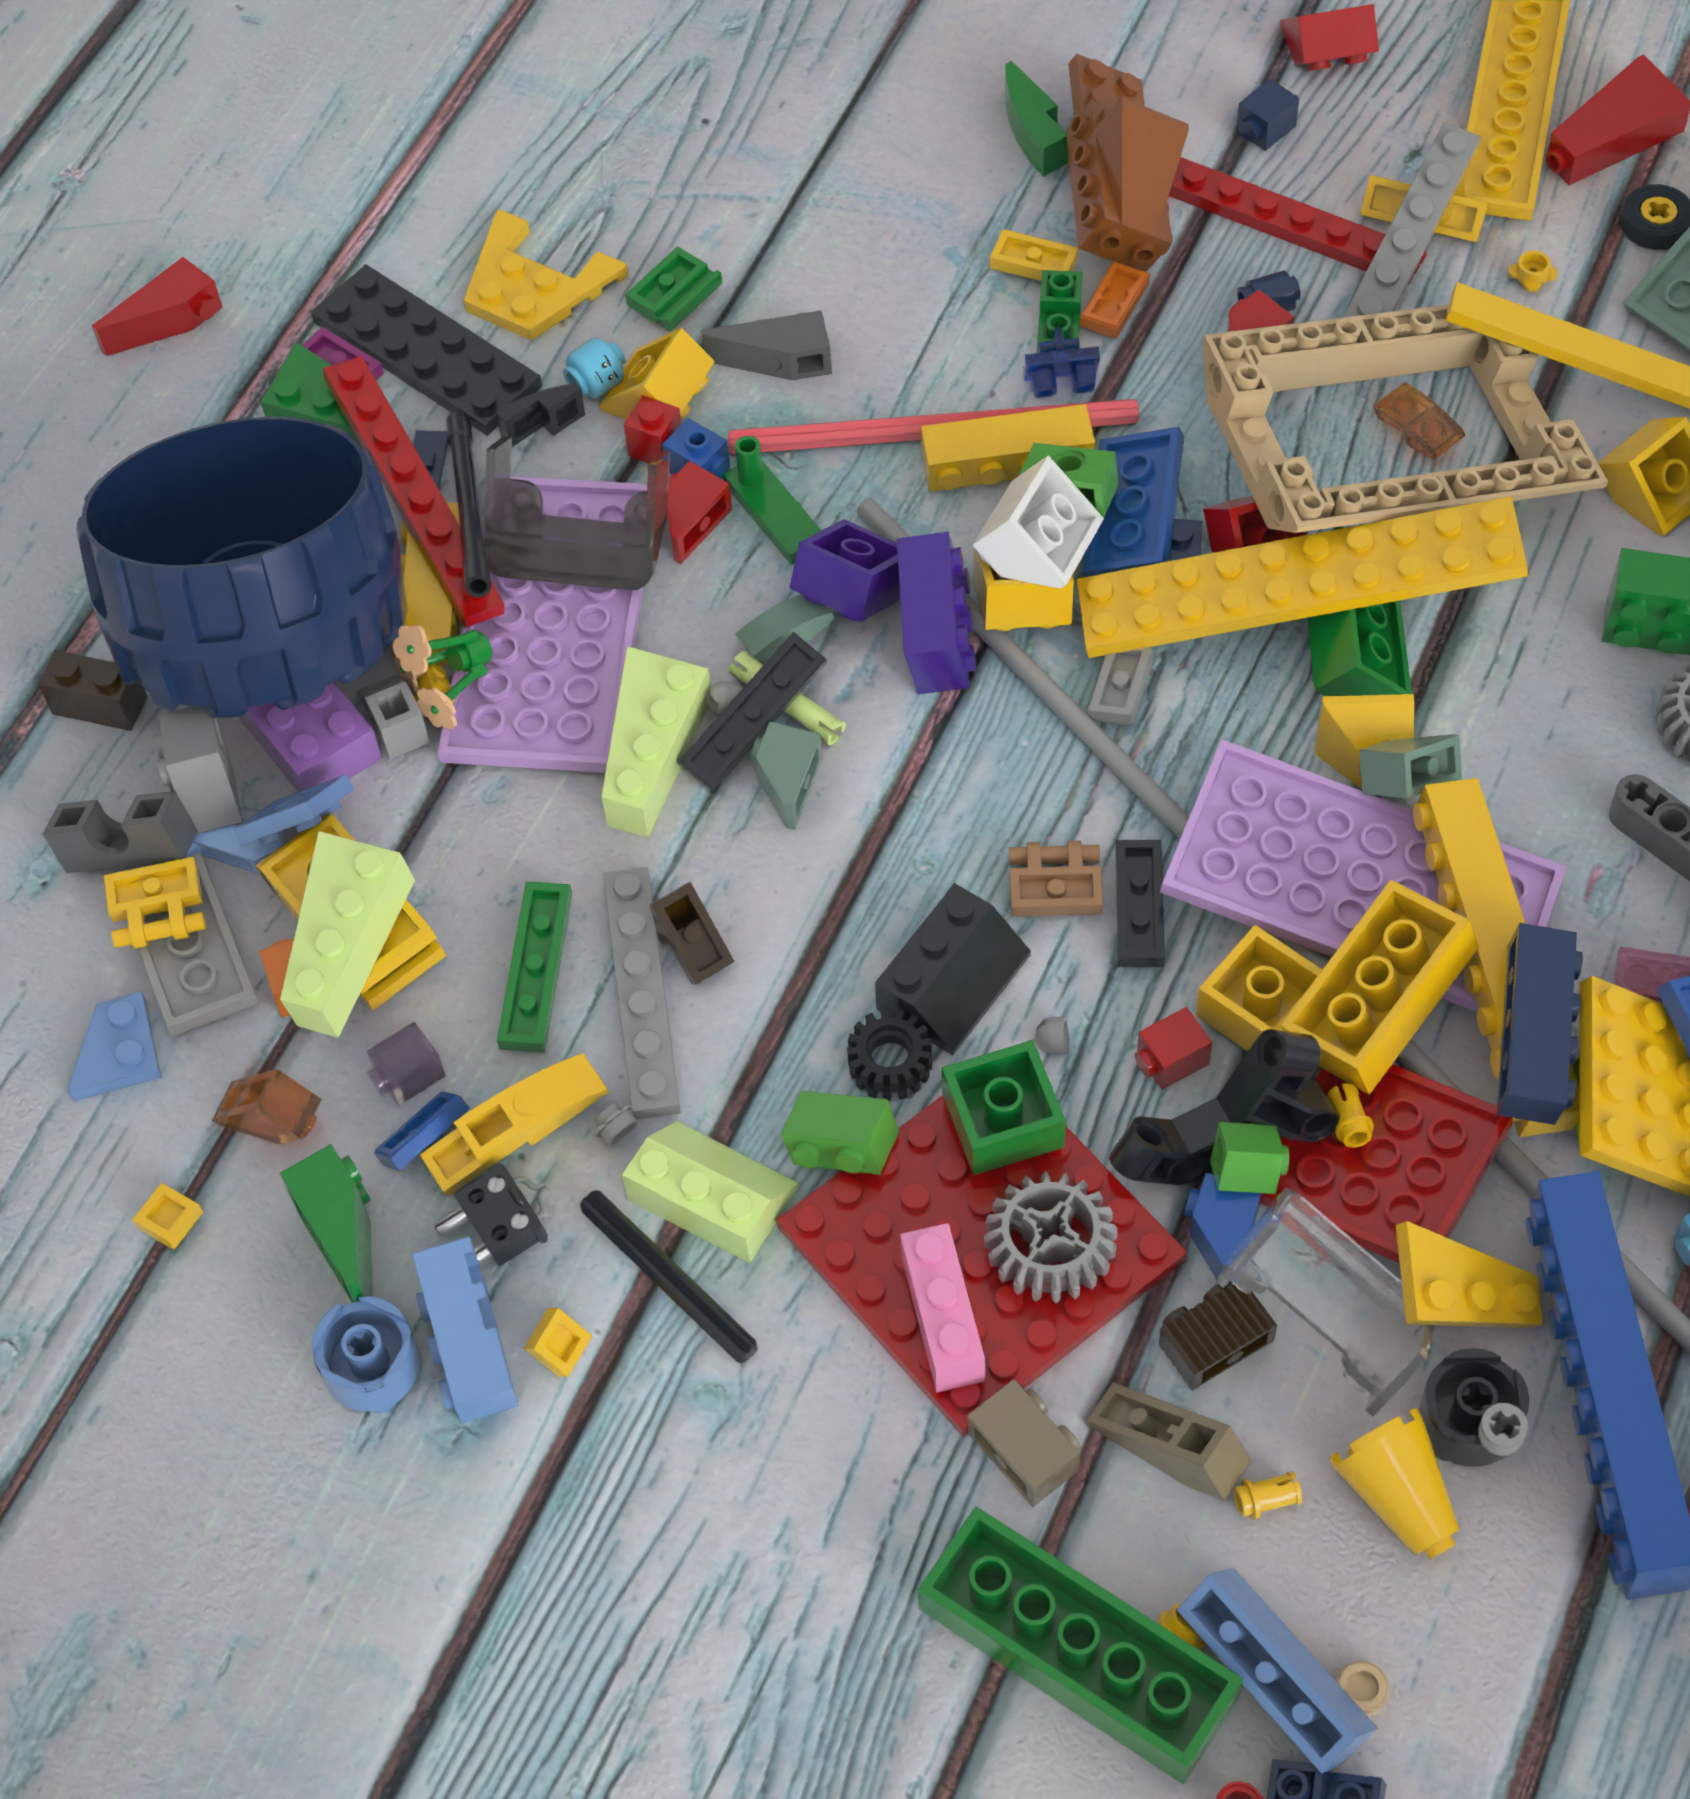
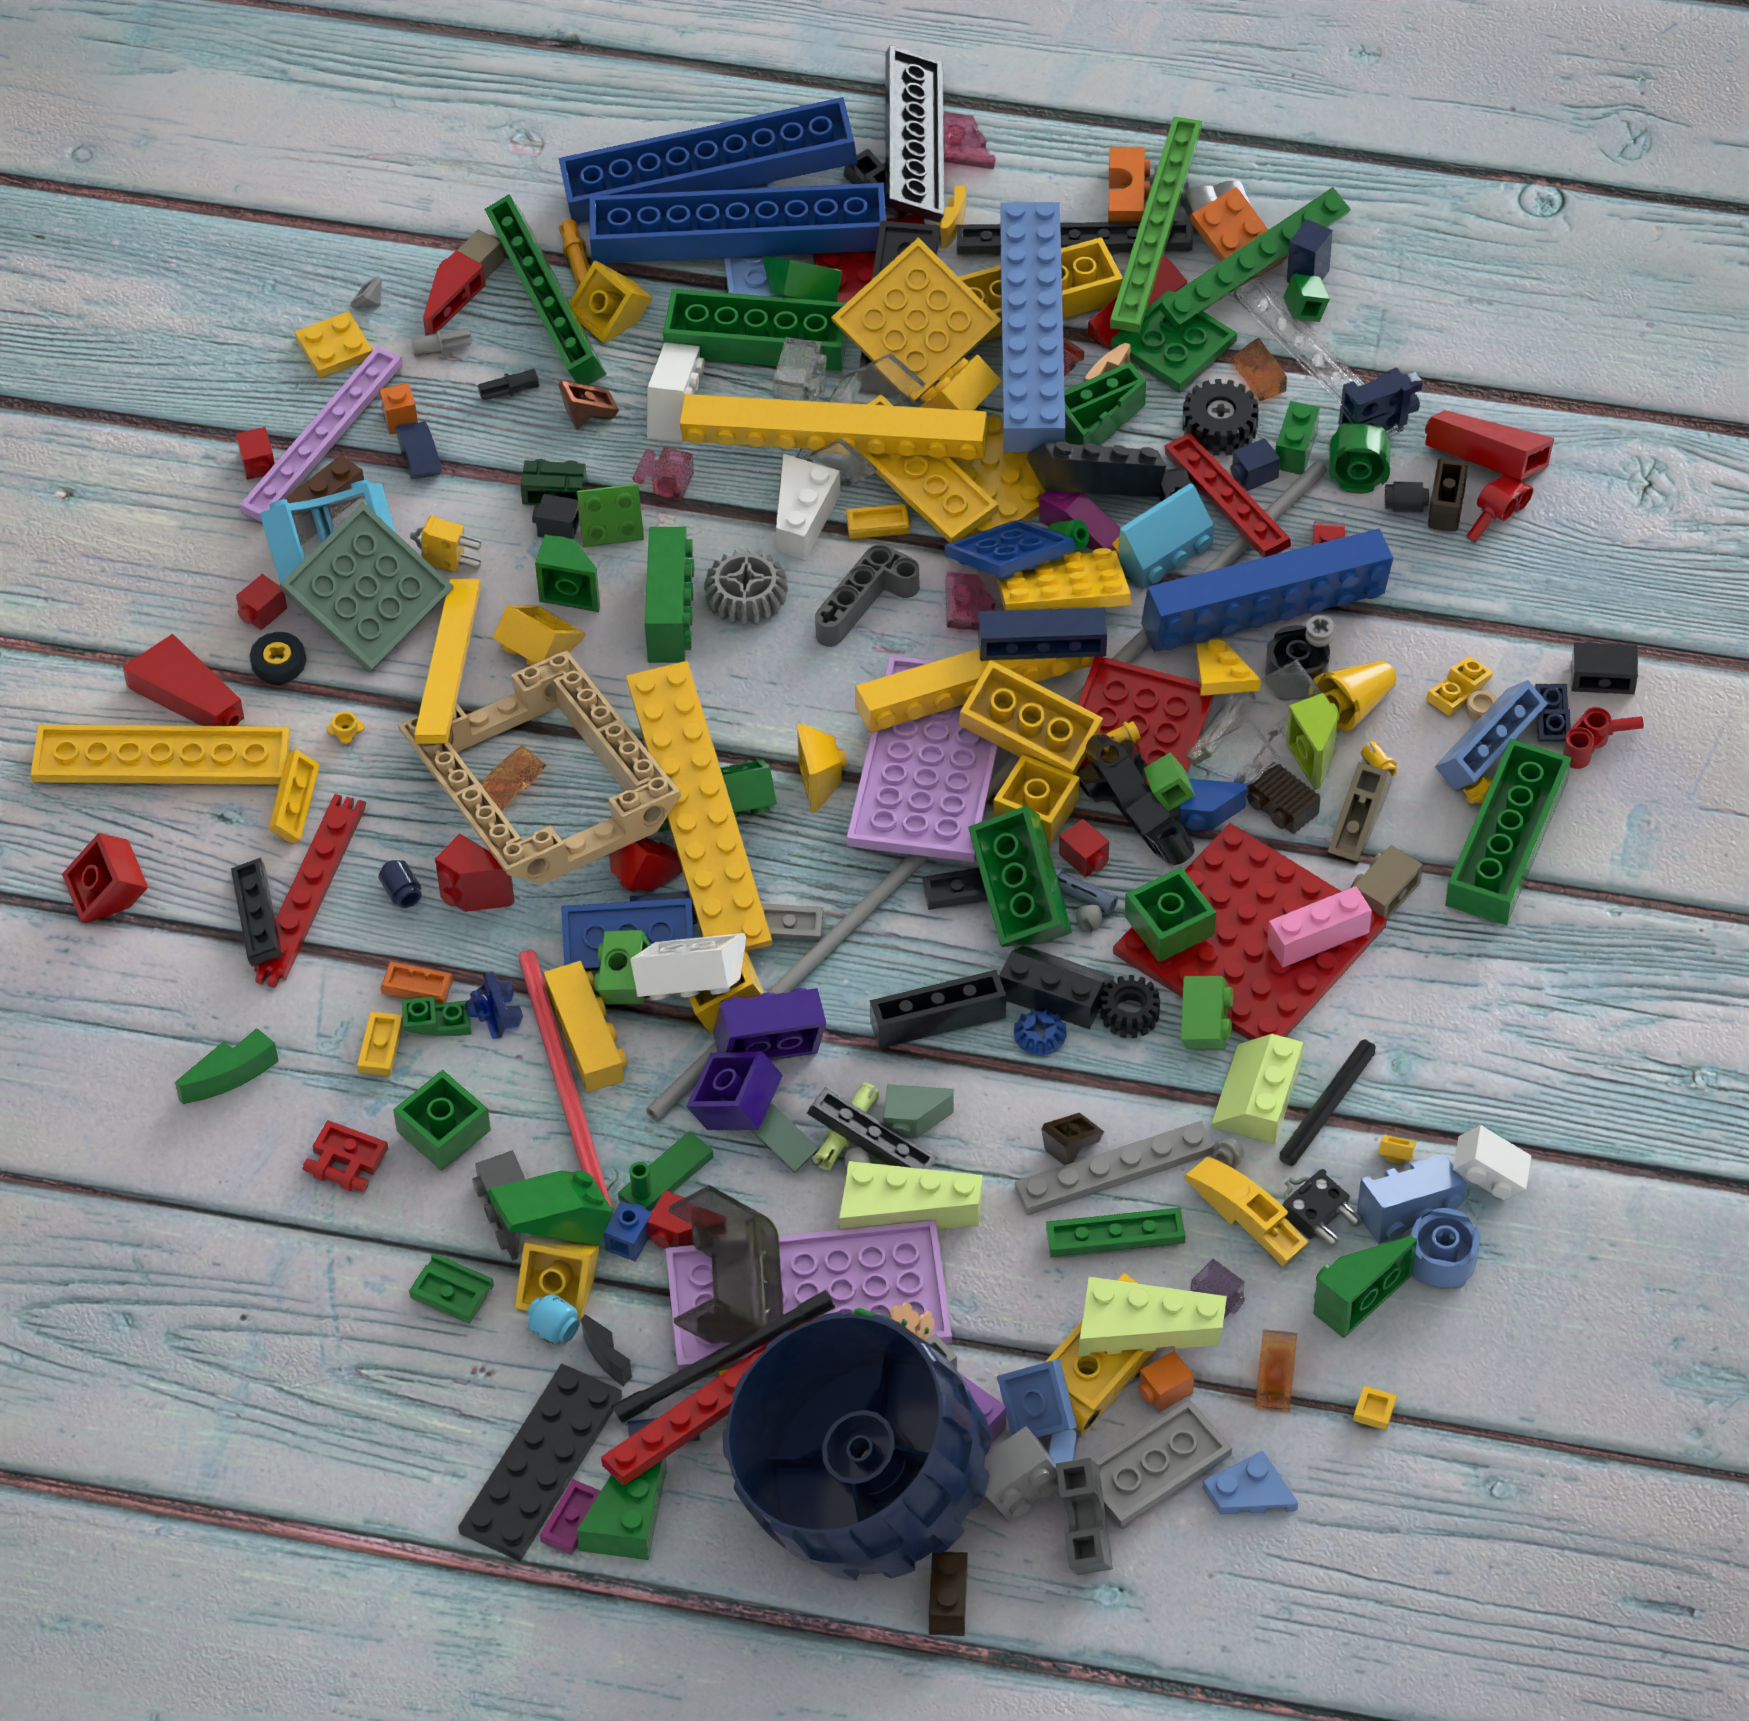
camera: 105 degrees left, 5 degrees down
(151, 891) = (1127, 1481): yellow plate -> none
(161, 309) = (529, 1665): red slope -> none
(421, 1130) = (1266, 1267): blue plate -> none
(474, 1449) = (1492, 1162): none -> white brick
(525, 293) = (465, 1407): yellow wing -> none
(649, 428) = (612, 1263): red brick -> none
(724, 360) = (554, 1206): none -> green slope
(863, 952) = (1031, 1041): none -> blue gear
(892, 218) = (347, 1147): none -> red plate
(897, 292) = (442, 1119): none -> green brick
(929, 813) = (937, 1009): none -> black brick
(1023, 1214) = (1268, 875): light grey gear -> none
(1055, 889) = (974, 933): medium nougat plate -> none
(1115, 941) = (1020, 878): none -> green slope
(1120, 165) = (299, 967): dark orange wedge -> none
(1126, 1009) = (1101, 898): none -> sand blue pin
(1255, 159) = (256, 912): none -> black tile
(1267, 114) = (203, 908): dark blue brick -> none
(1305, 1390) = (1313, 736): none -> lime slope
(1406, 765) = (847, 732): sand green slope -> none
(1412, 1669) = (1461, 681): none -> yellow slope
(1415, 222) = (329, 793): light grey plate -> none

